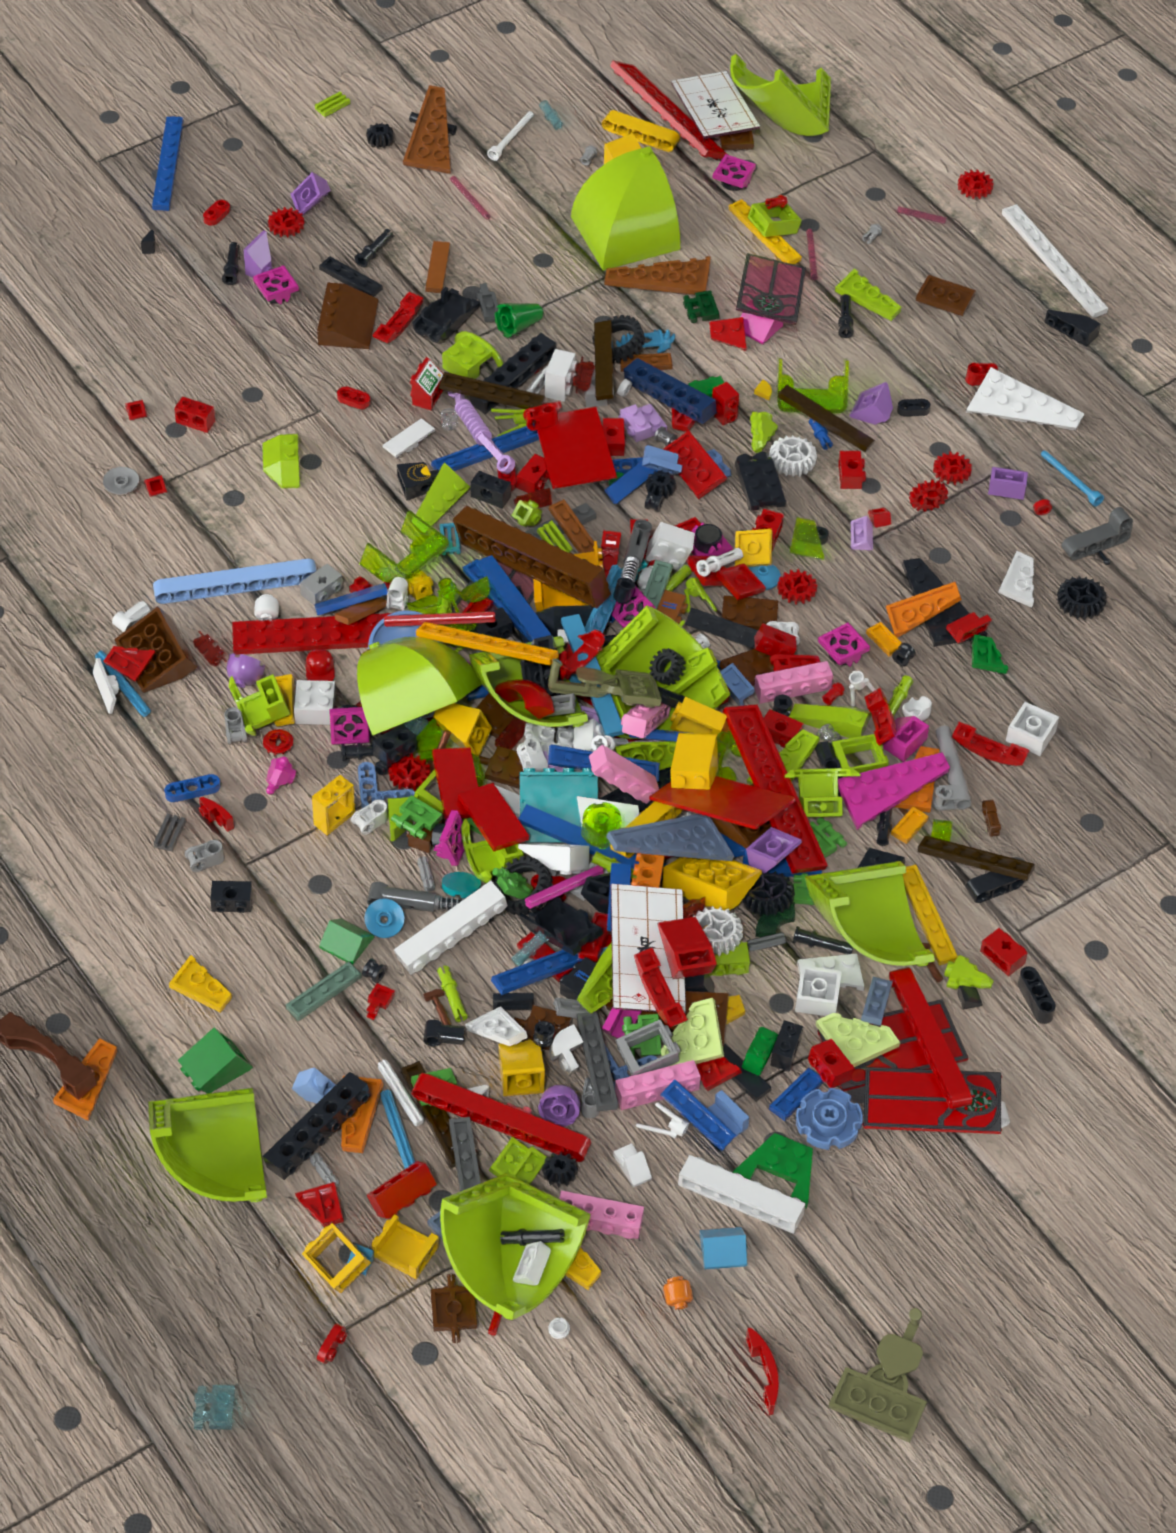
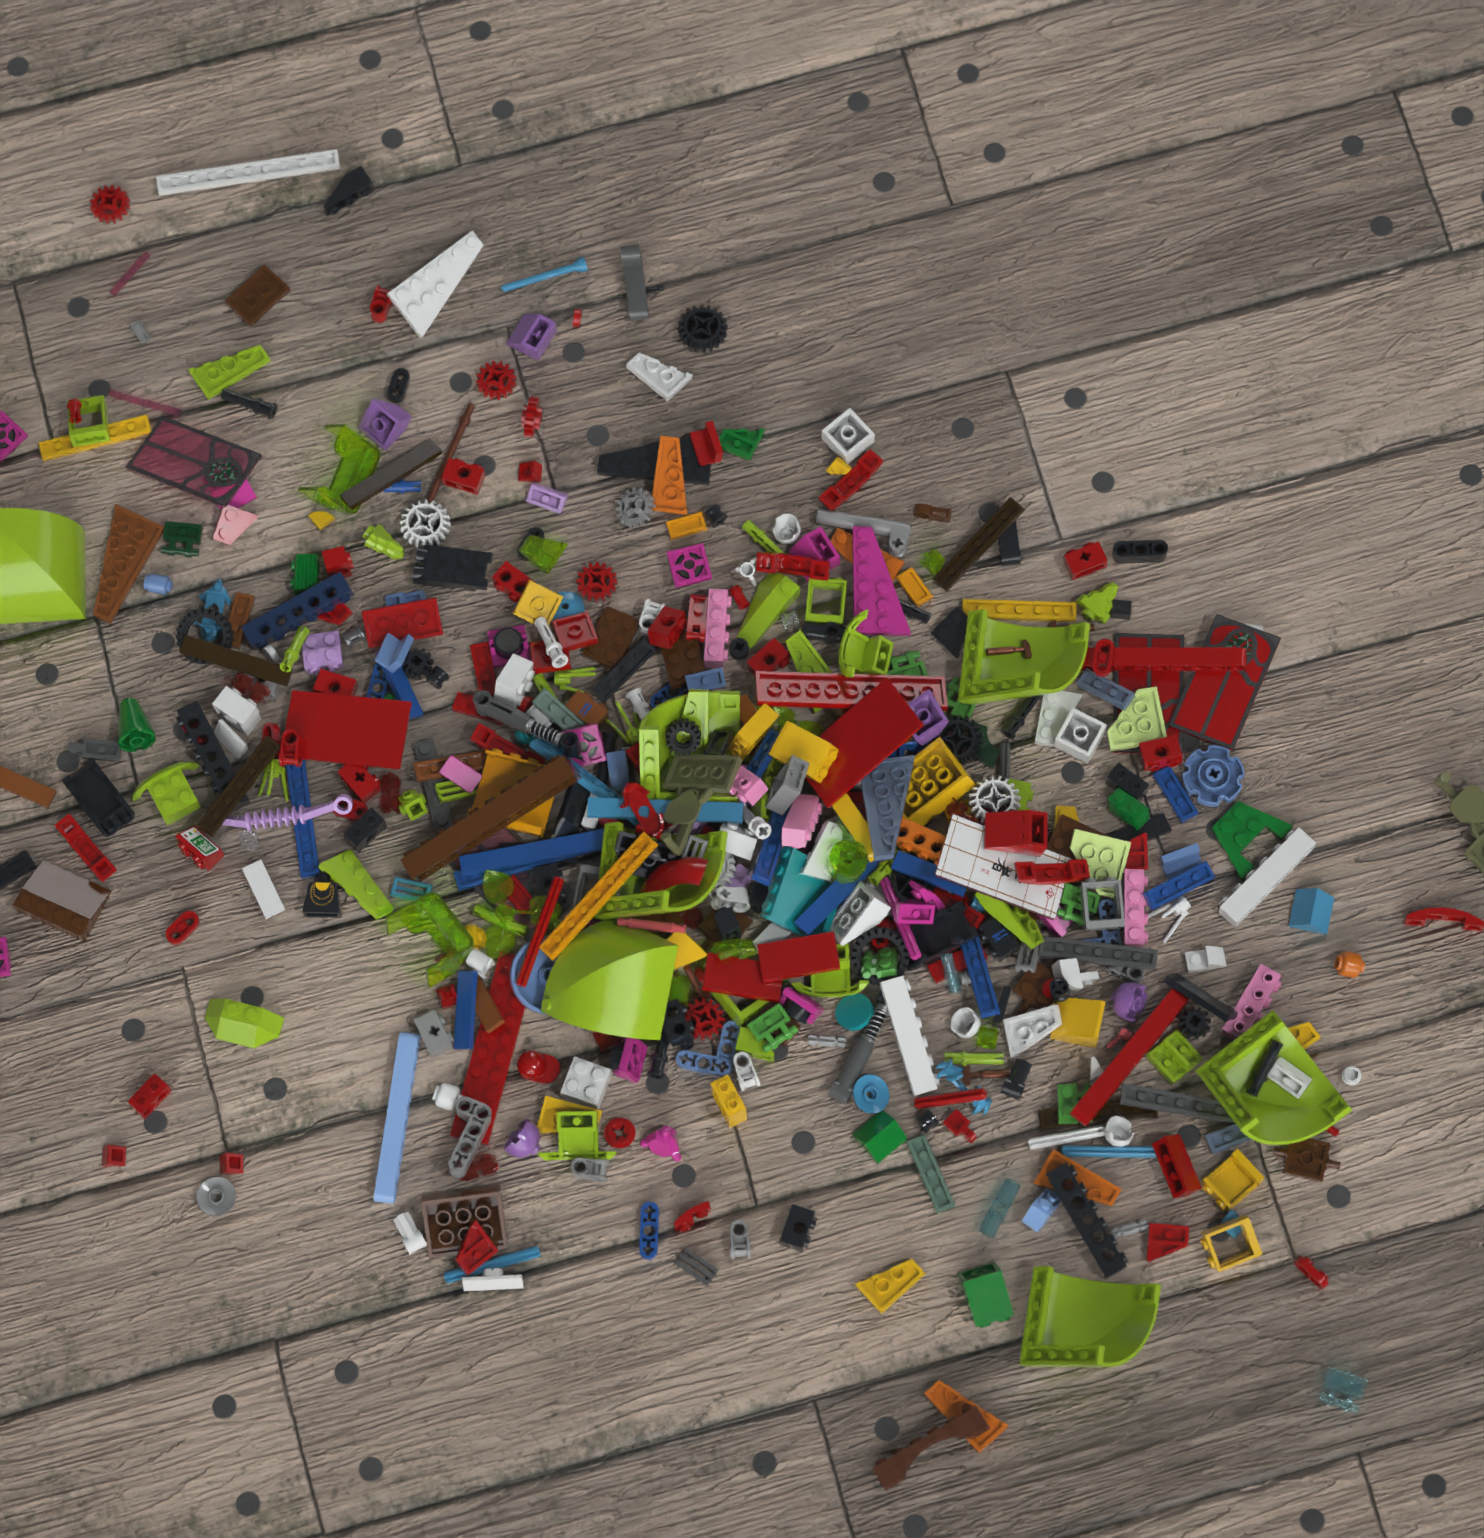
camera: 65 degrees left, 20 degrees up
(231, 628) = (466, 1138): none -> light grey beam
(296, 1051) = (993, 1218): none -> clear light blue piece
(400, 977) = (950, 1098): none -> red axle
(420, 1130) = (1118, 1131): none -> white hair
(425, 971) = (953, 1074): none -> dark azure piece
(475, 691) = (651, 925): none -> coral piece
(477, 998) = (987, 1037): none -> clear neon green tile
(482, 975) = (965, 1022): none -> white hair
(485, 772) = (740, 947): none -> clear neon green slope
(501, 754) = (727, 924): none -> black brick
(568, 534) = (460, 774): none -> dark pink slope
(571, 889) = (914, 912): none -> dark pink slope
(586, 1162) = (1201, 997): none -> black tile
(595, 893) = (925, 895): none -> dark pink slope
(629, 392) = (292, 653): none -> lime pin
(653, 301) = (158, 584): none -> medium blue brick
(657, 754) = (787, 785): none -> light grey window
(881, 593) = (635, 507): none -> light grey gear
(881, 914) = (1011, 650): none -> copper piece
(902, 458) = (464, 422): none -> copper bar
(905, 982) = (1103, 658): none -> red plate
(999, 732) = (838, 467): none -> yellow tile

